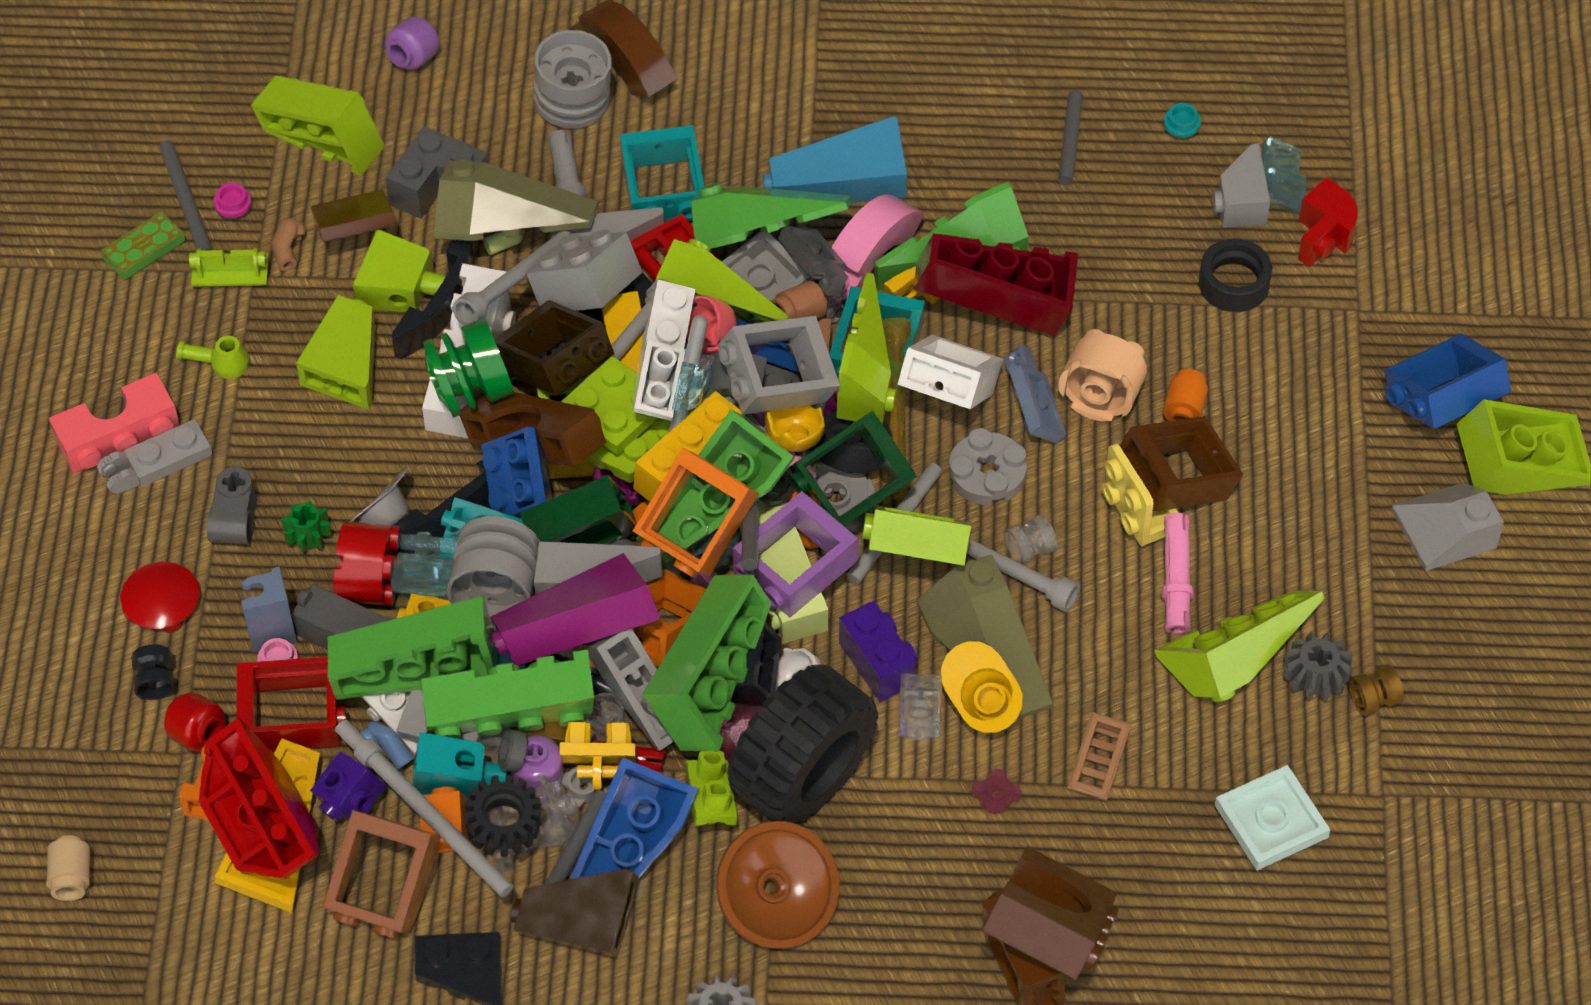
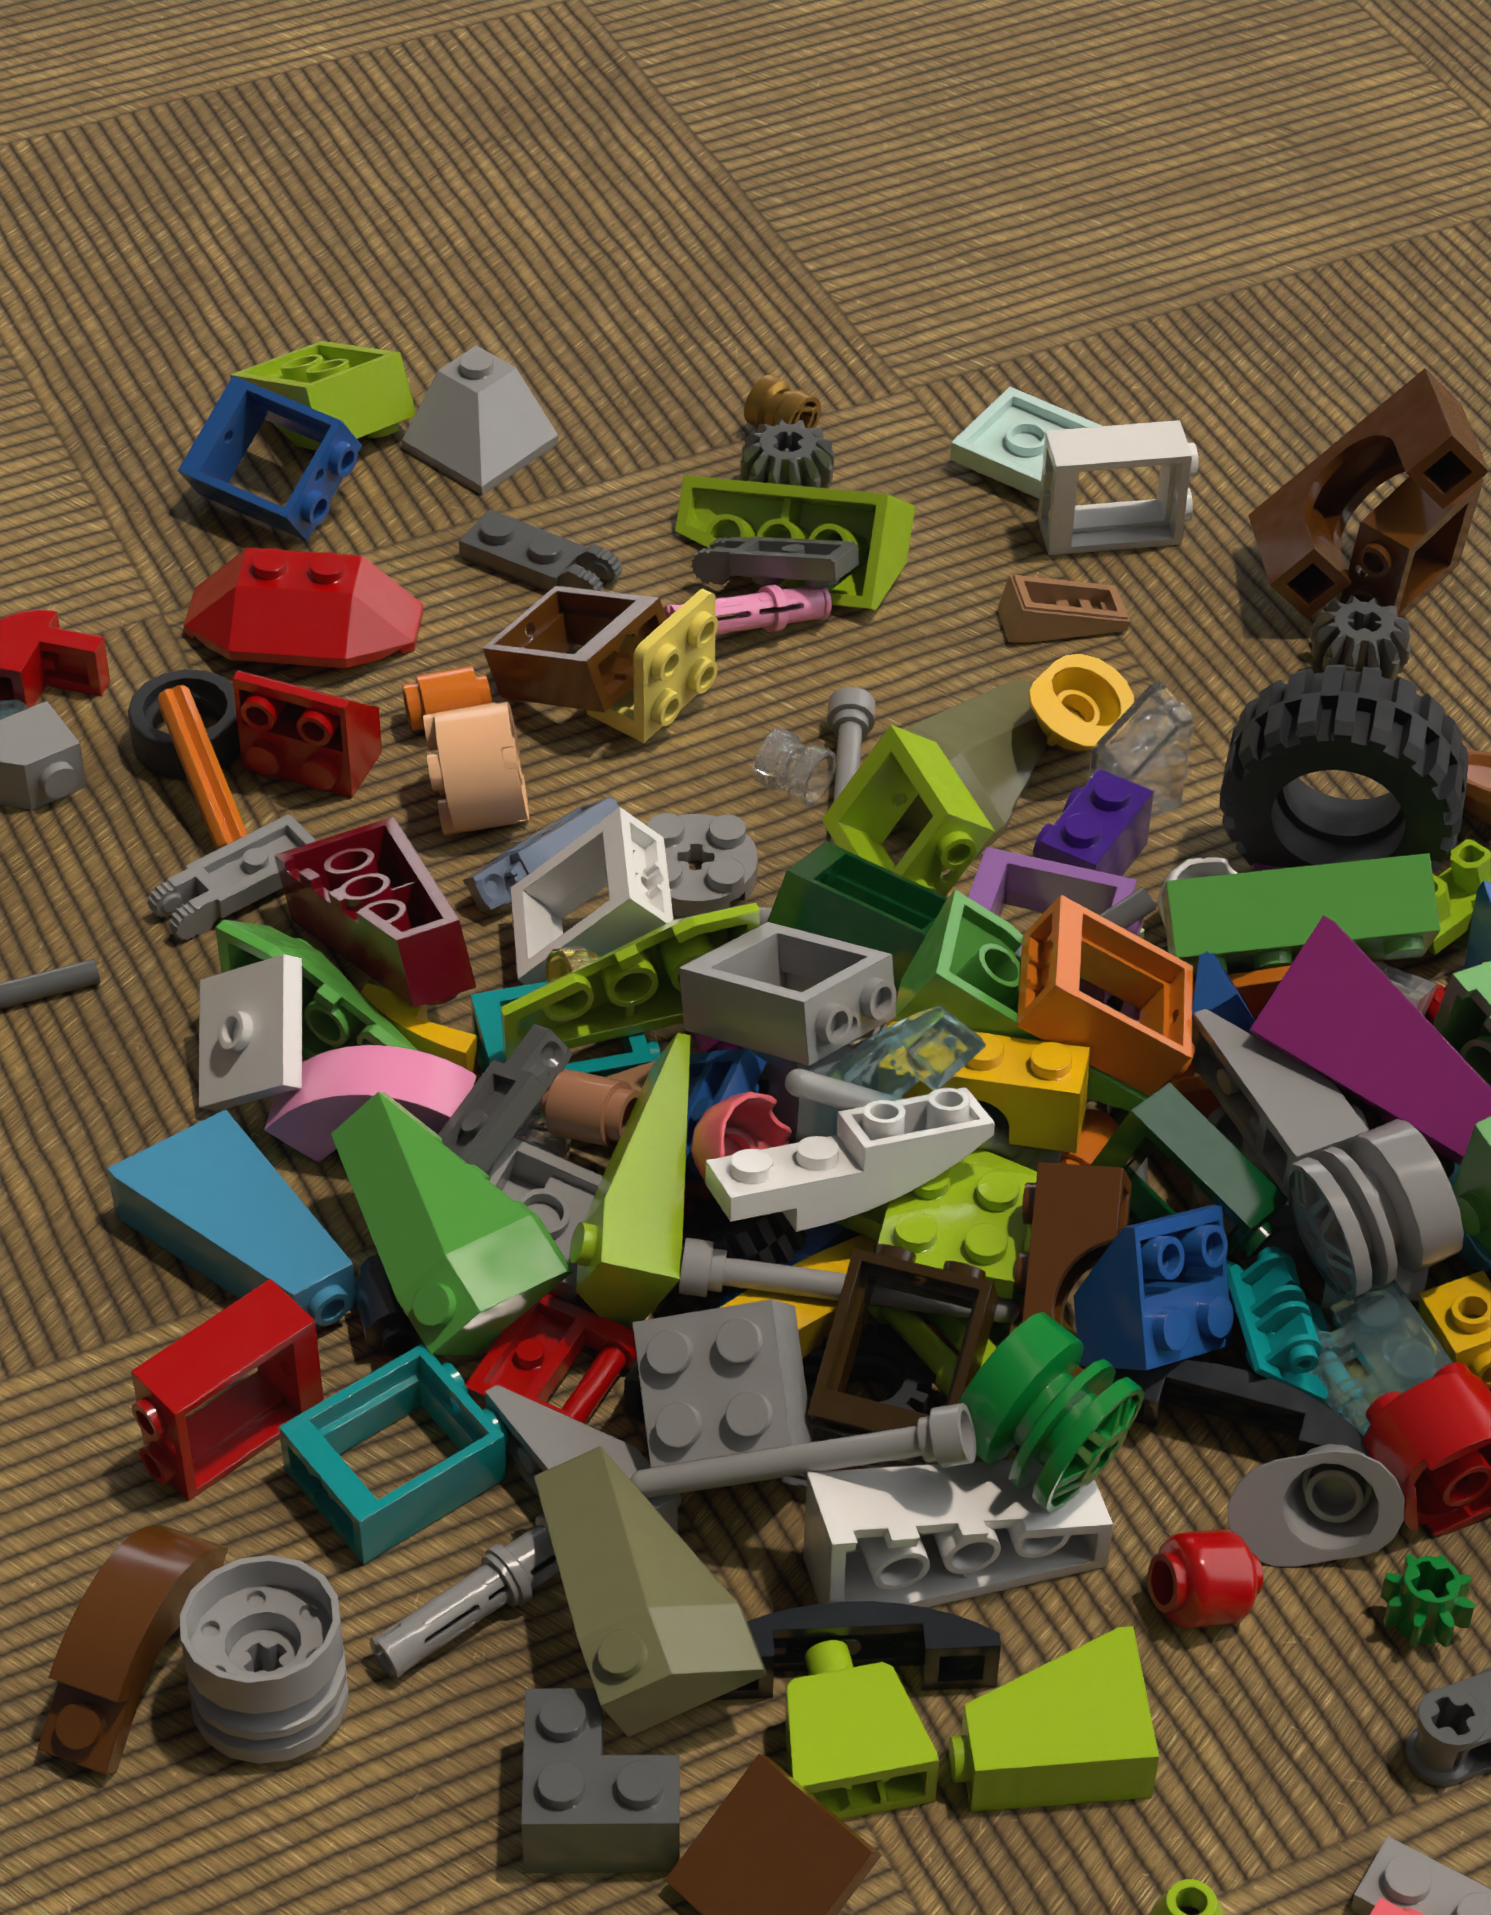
camera: 120 degrees left, 10 degrees down
(379, 444) = (1205, 1578): none -> red head
(675, 584) = (1218, 994): none -> blue slope
(727, 116) = (256, 1331): none -> red window
(945, 192) = (250, 1033): none -> white plate
(950, 891) = (1361, 637): none -> dark grey gear
(994, 802) = (1193, 677): clear pink plate -> none
(1098, 260) = (226, 878): none -> light grey hinge
(1174, 815) = (1115, 524): none -> white window
(1178, 256) = (201, 766): none -> orange axle
(1187, 313) = (305, 734): none -> red slope
(1209, 606) = (775, 560): none -> dark grey hinge
(1298, 363) = (303, 610): none -> red wedge
(1305, 504) = (536, 555): none -> dark grey hinge

